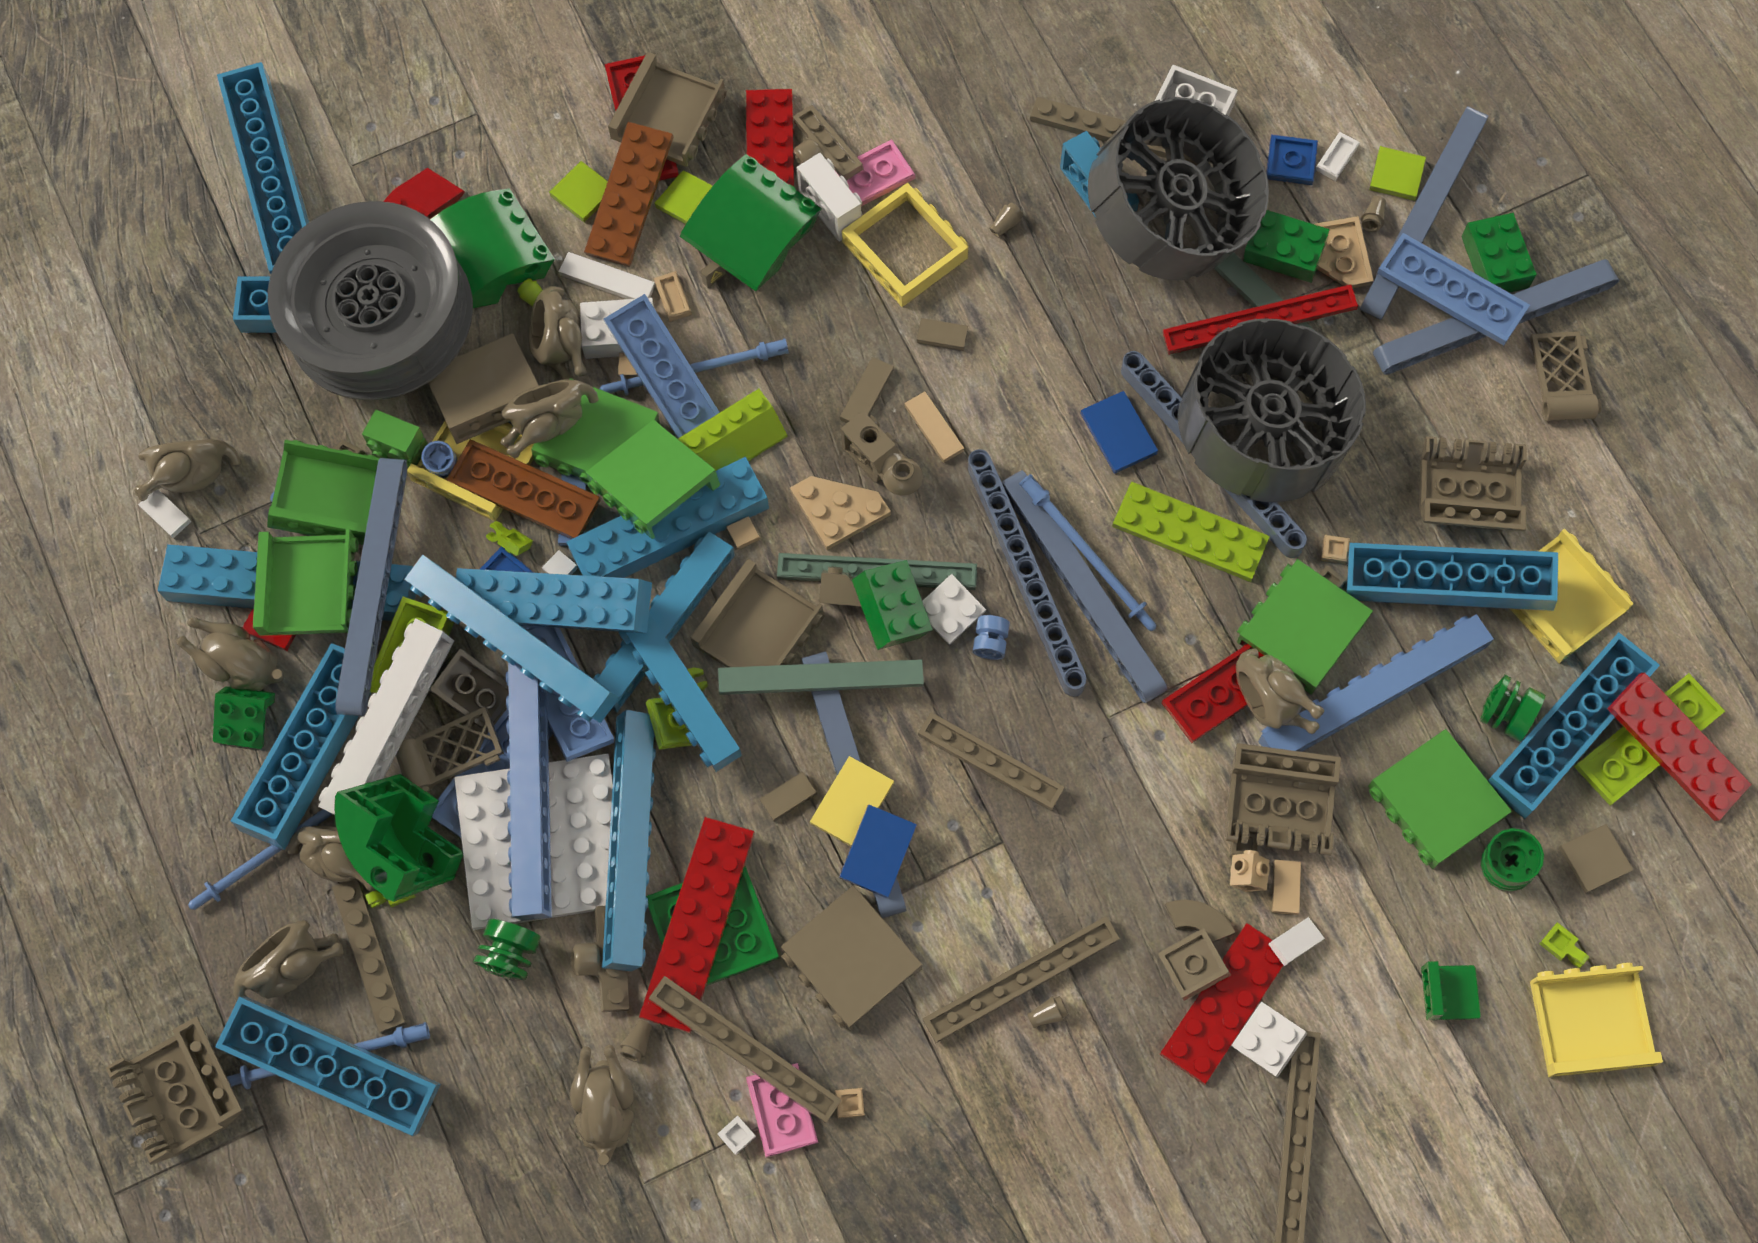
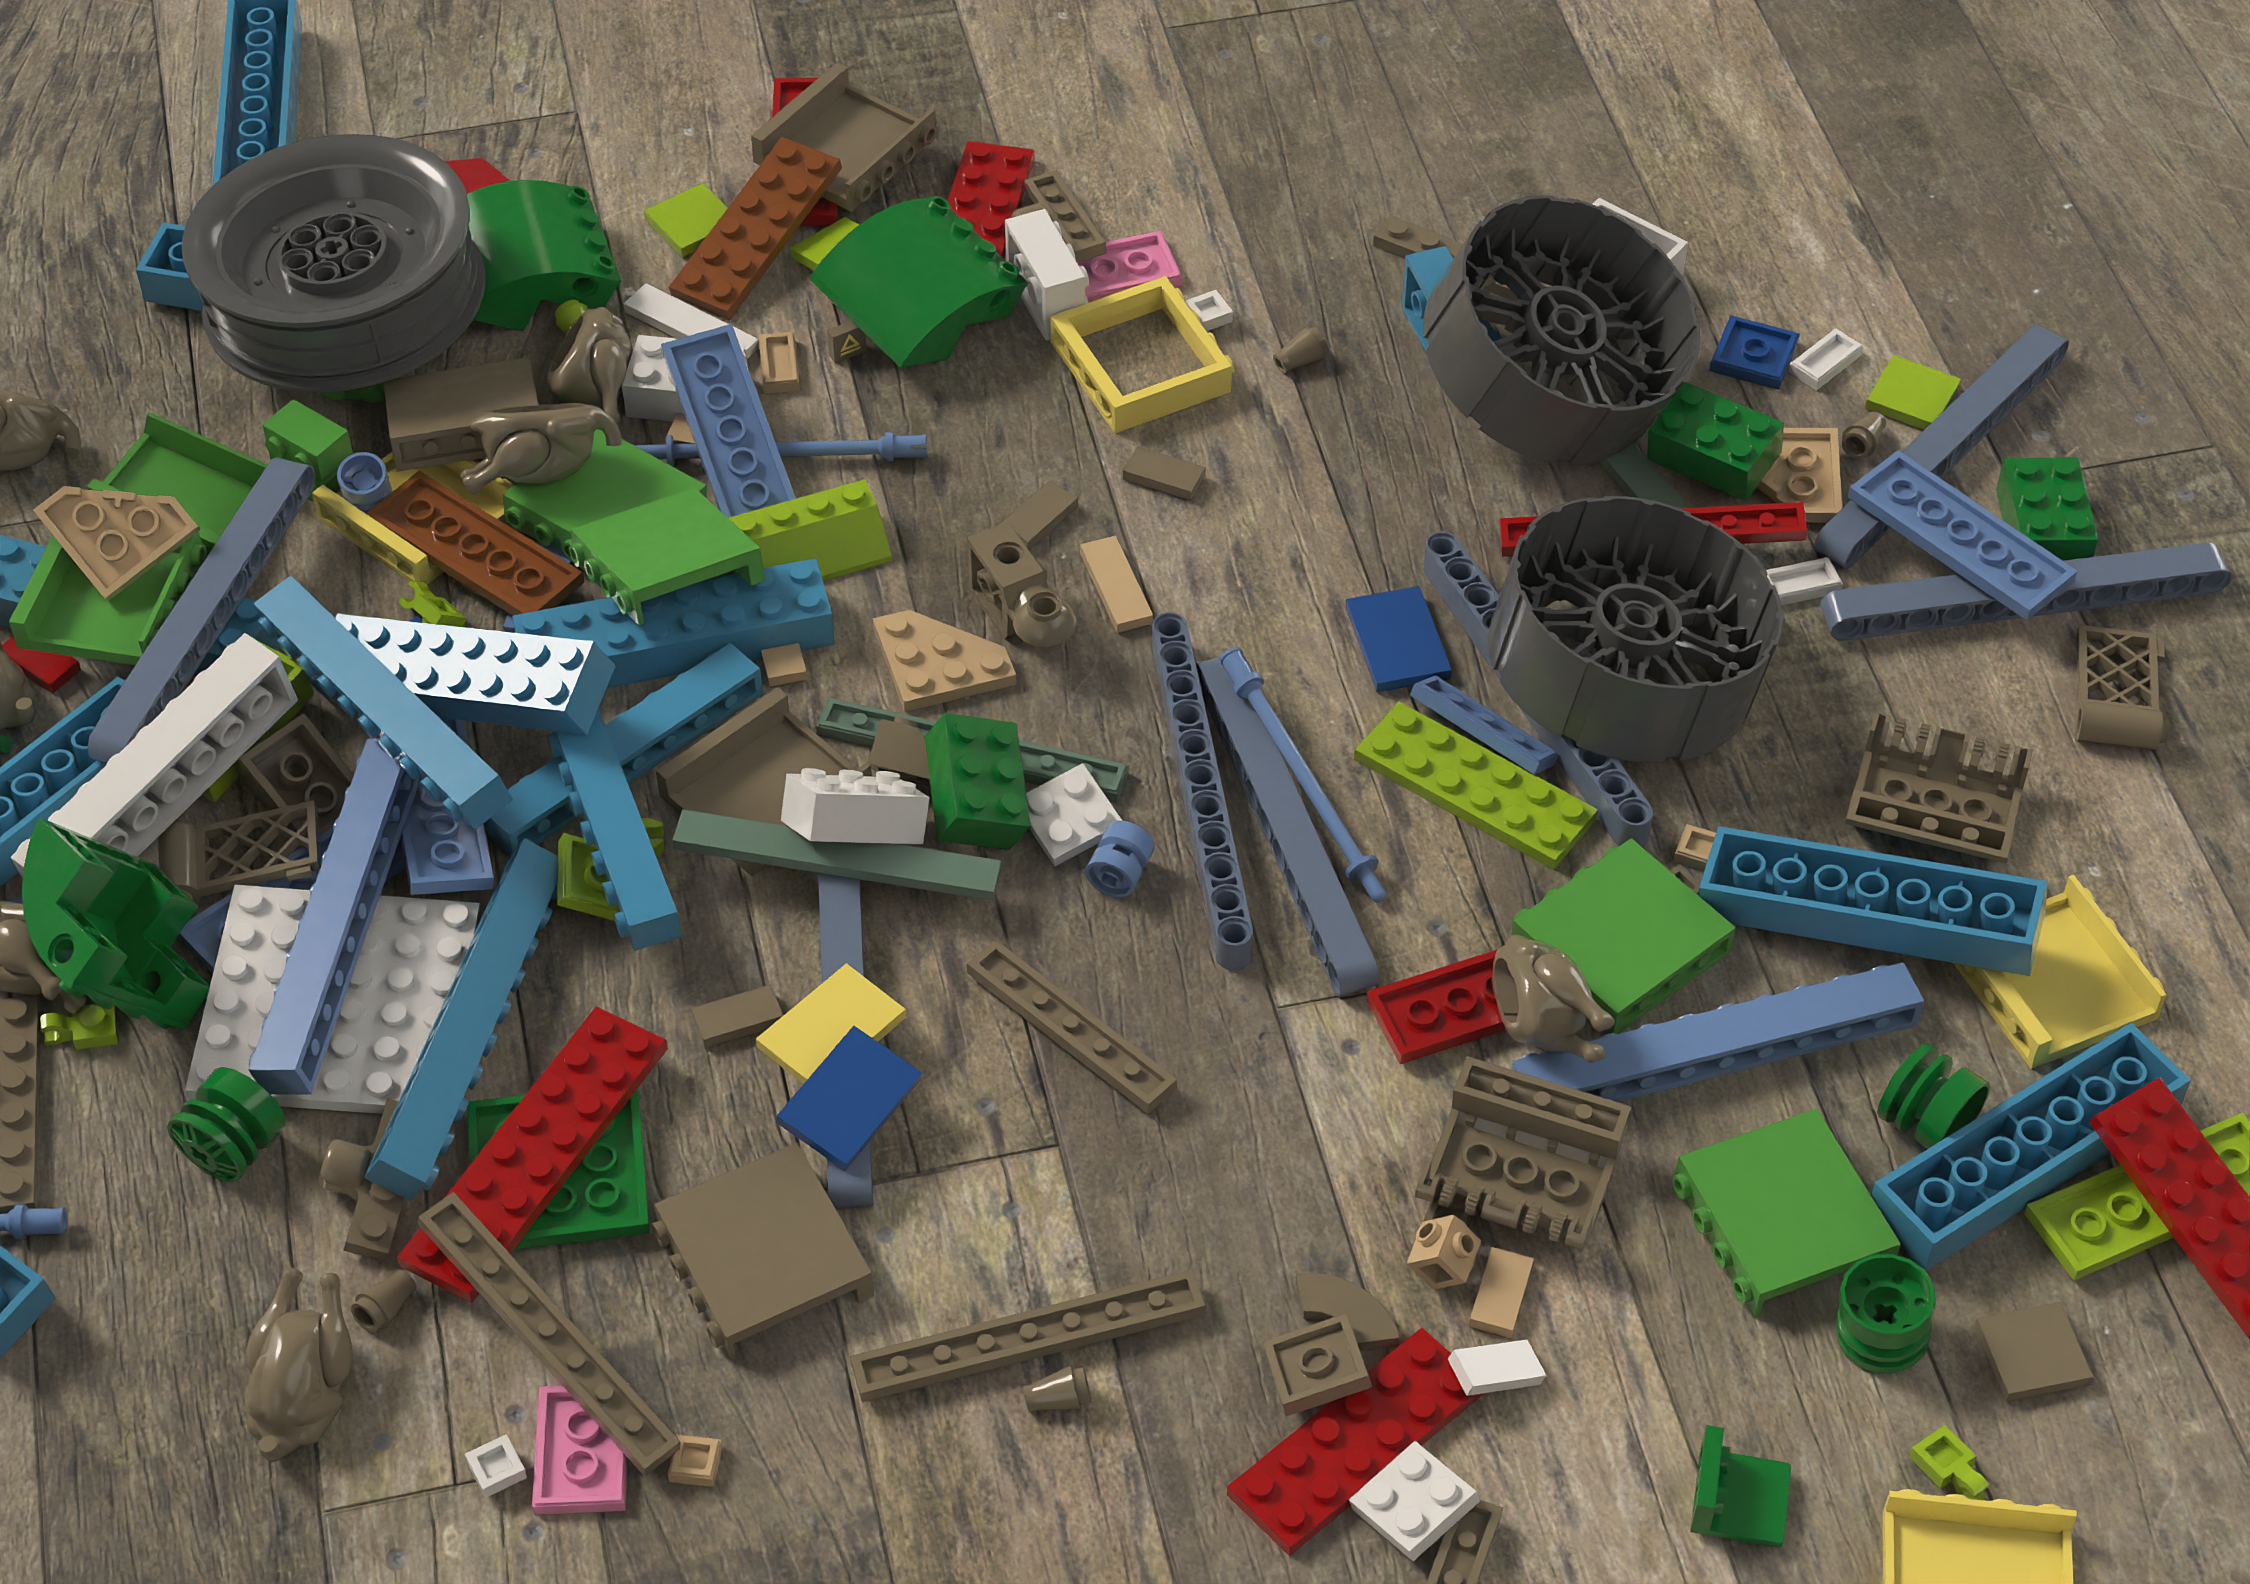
camera: 10 degrees right, 20 degrees down
(299, 547) = (115, 532): none -> tan plate
(824, 645) = (854, 807): none -> white brick
(940, 199) = (1211, 310): none -> white plate
(1187, 487) = (1484, 724): none -> medium blue tile
(1356, 335) = (1805, 580): none -> white tile

